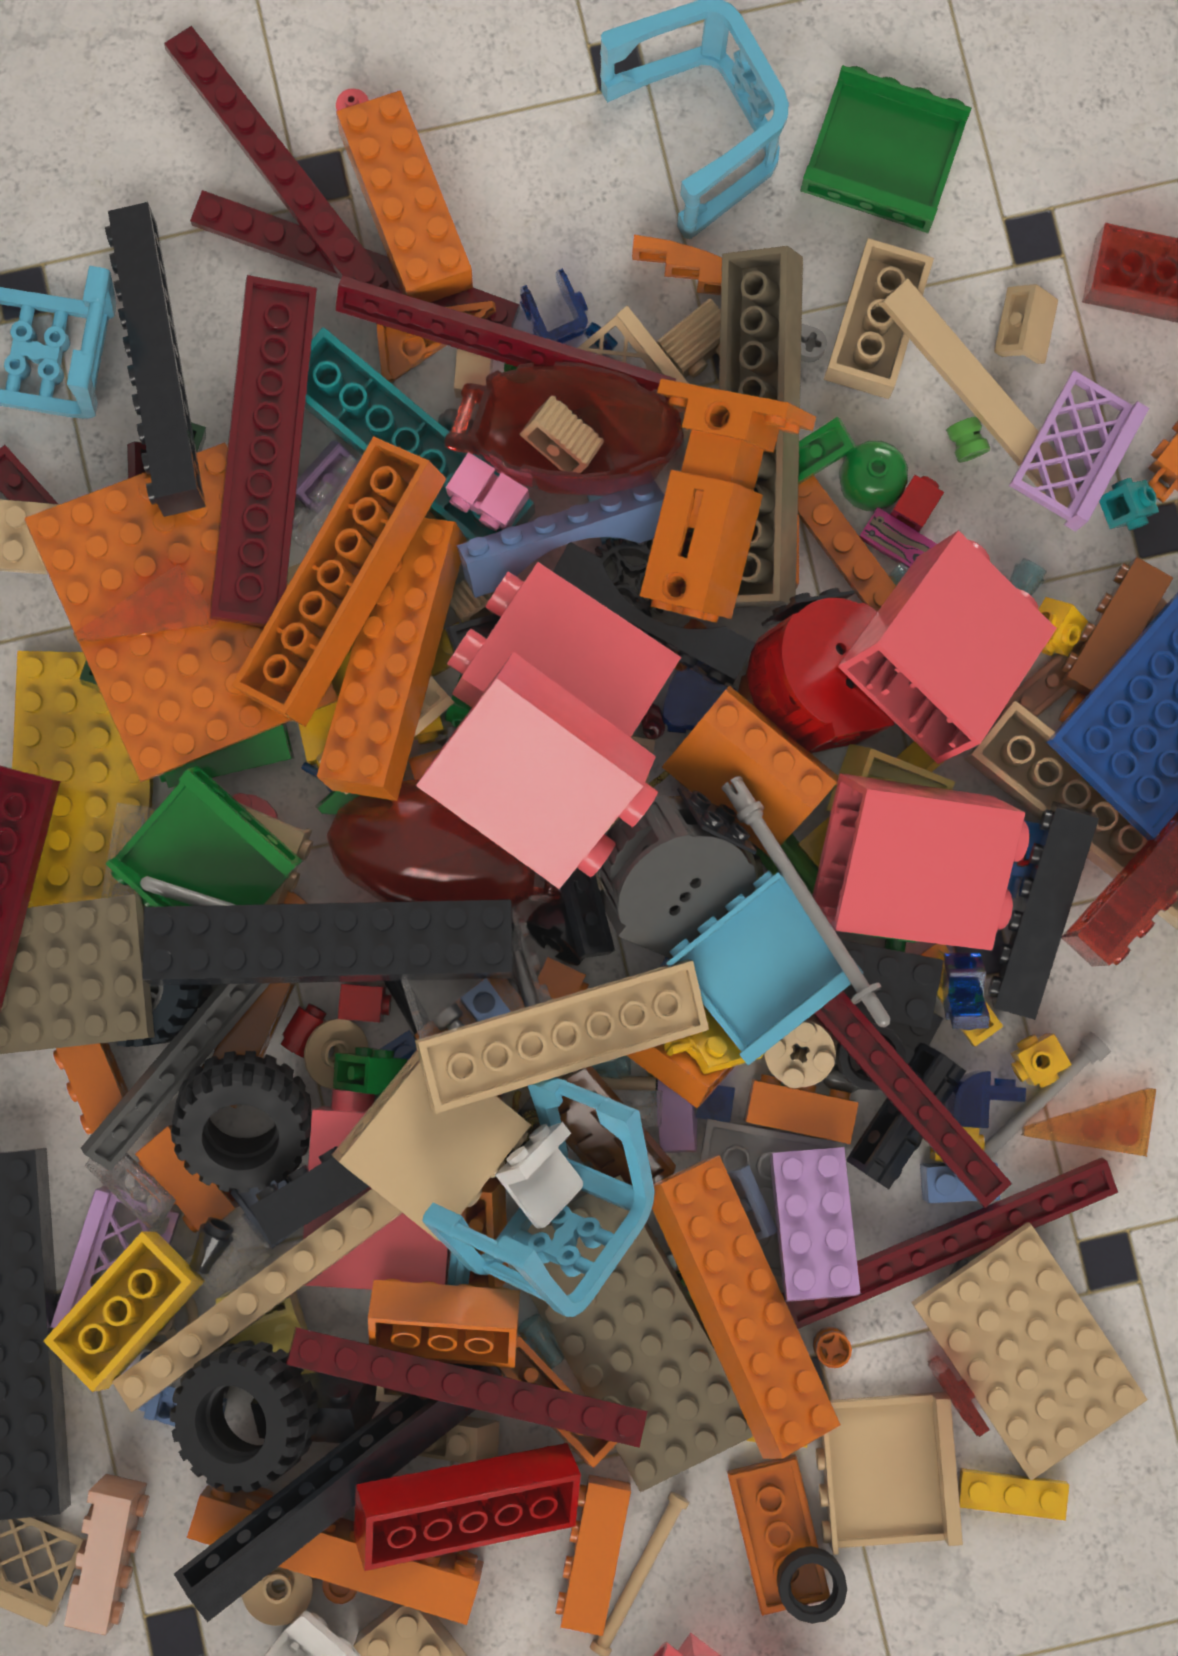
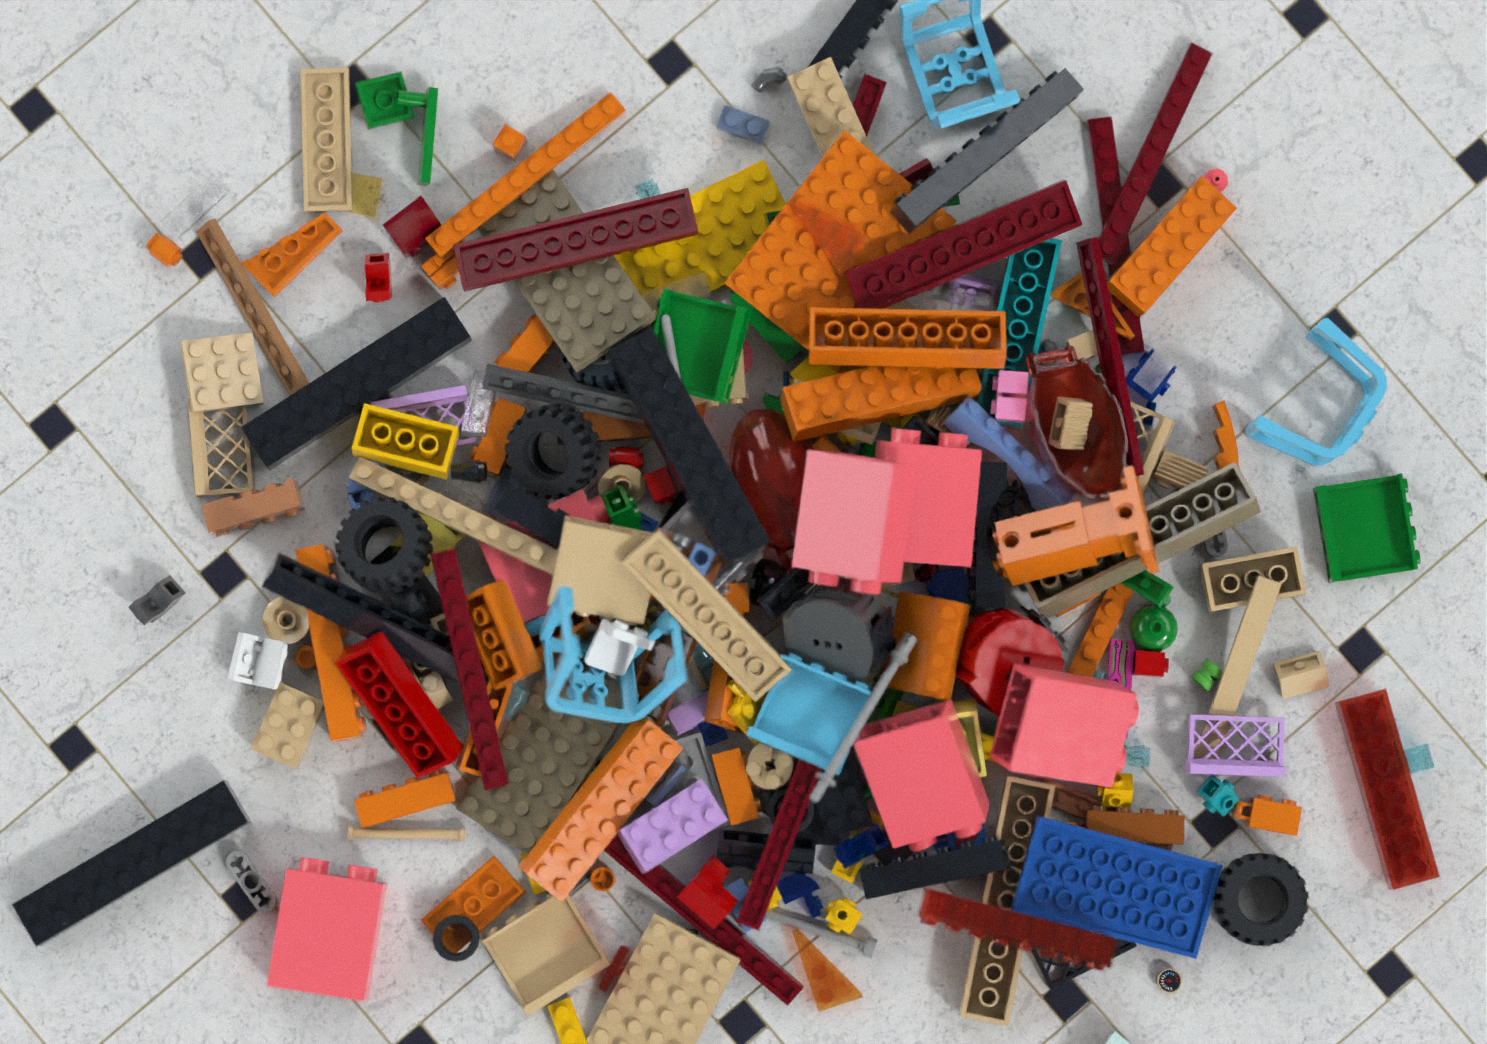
camera: 55 degrees right, 0 degrees up
(925, 1226) = (707, 895): none -> red brick

